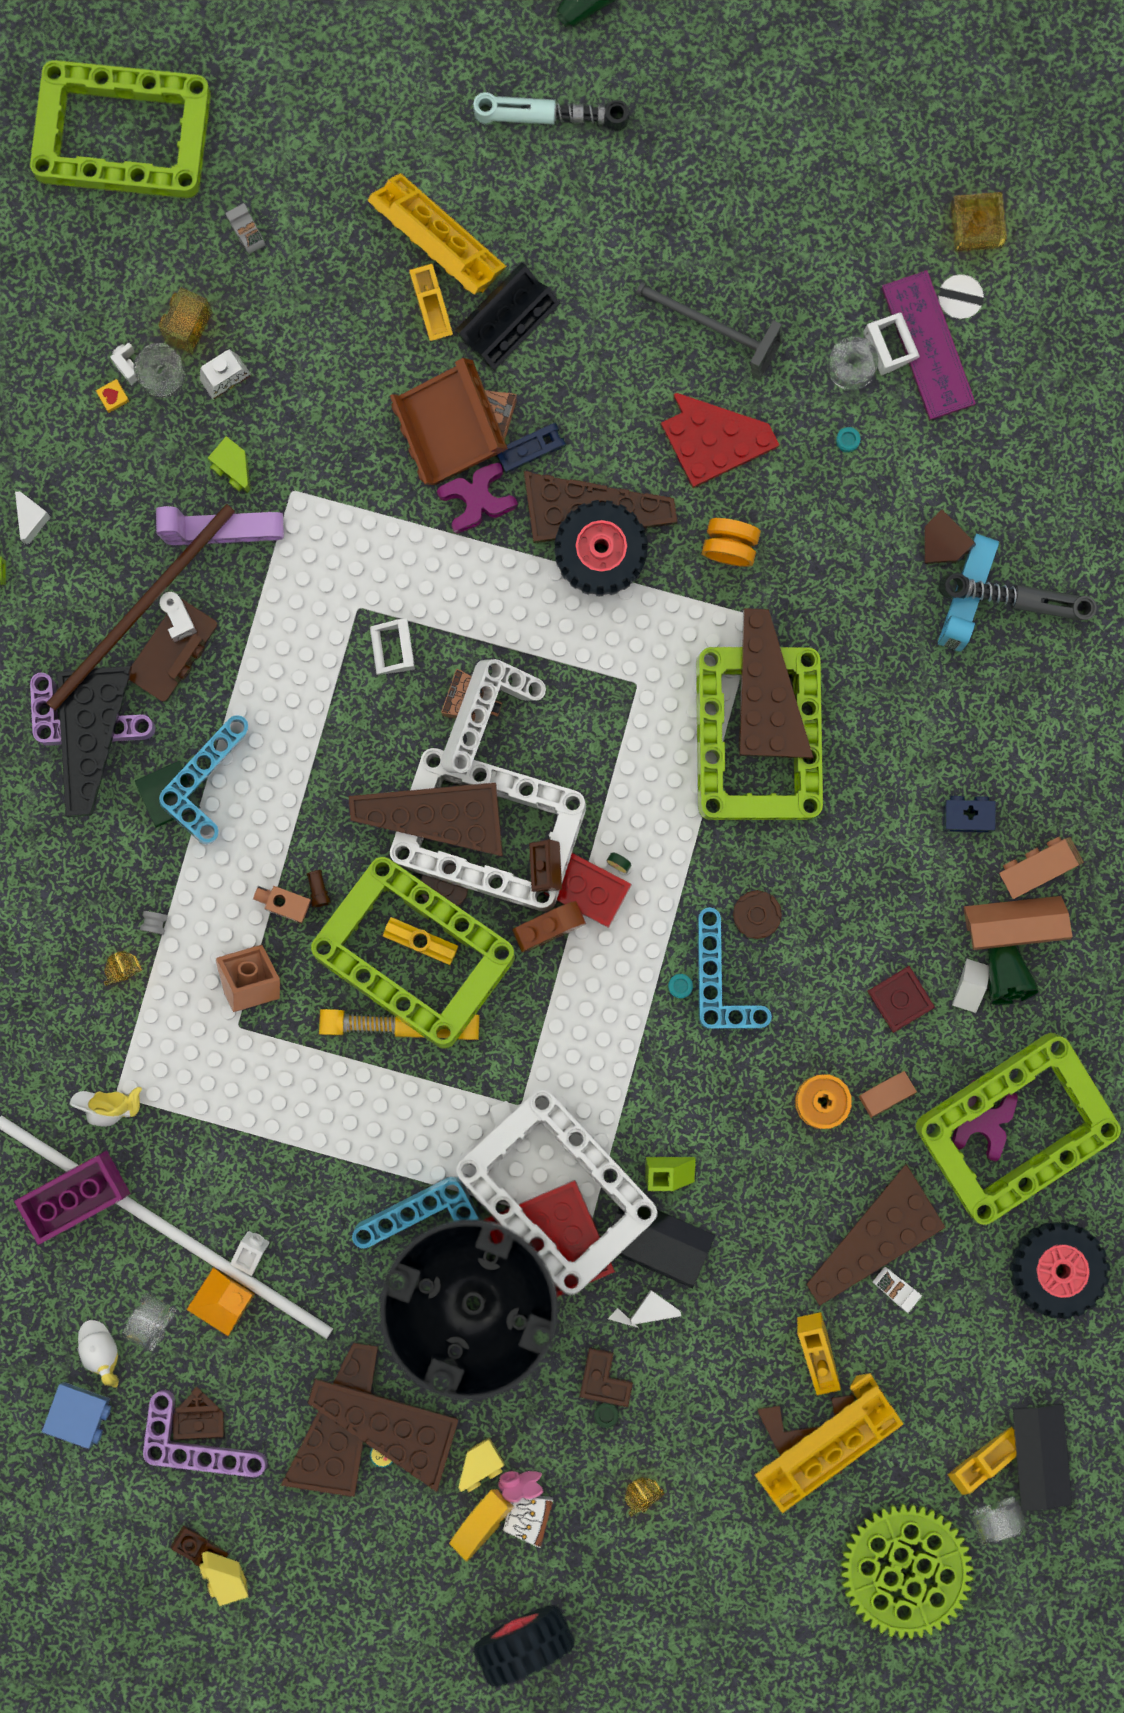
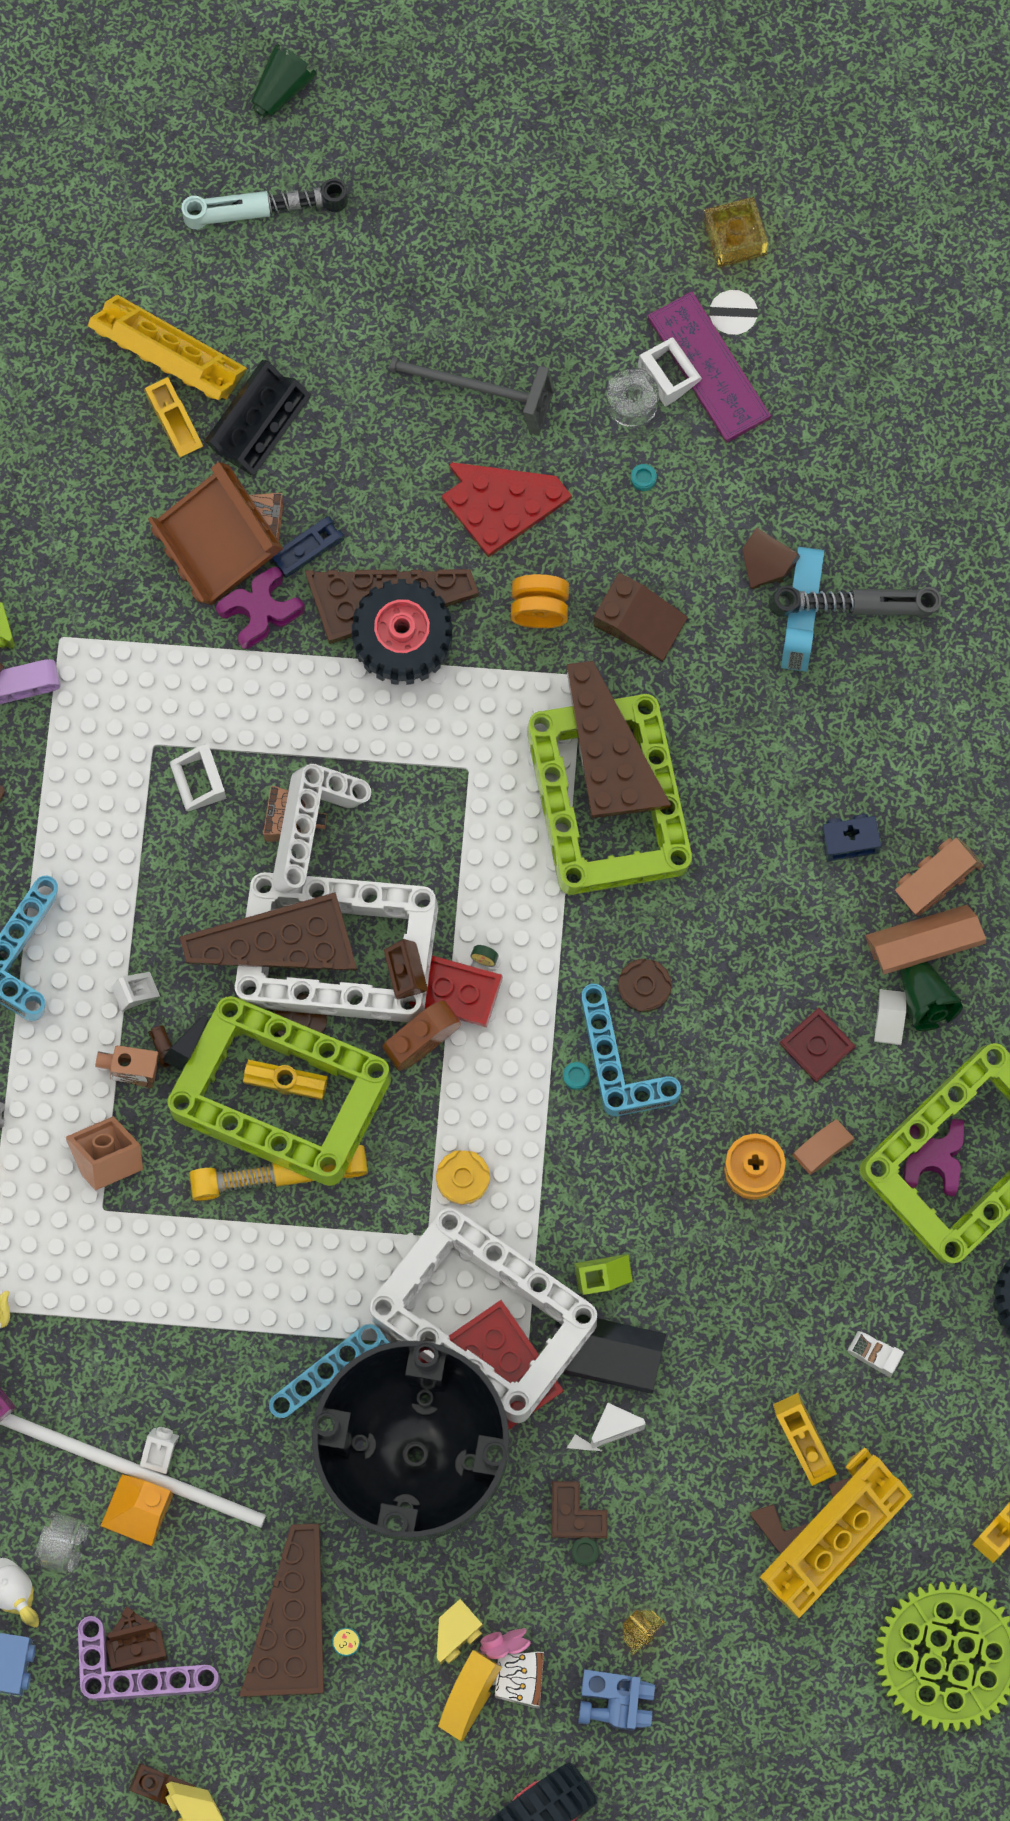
camera: 10 degrees left, 10 degrees down
(301, 833) = (134, 990): none -> white slope
(334, 898) = (184, 1047): none -> black slope
(399, 1431) = (363, 1611): reddish brown wing -> none
(561, 1060) = (462, 1177): none -> yellow tile
(614, 1550) = (622, 1699): none -> medium blue hips
(819, 573) = (639, 617): none -> reddish brown slope
(888, 1229) = (852, 1293): reddish brown wing -> none

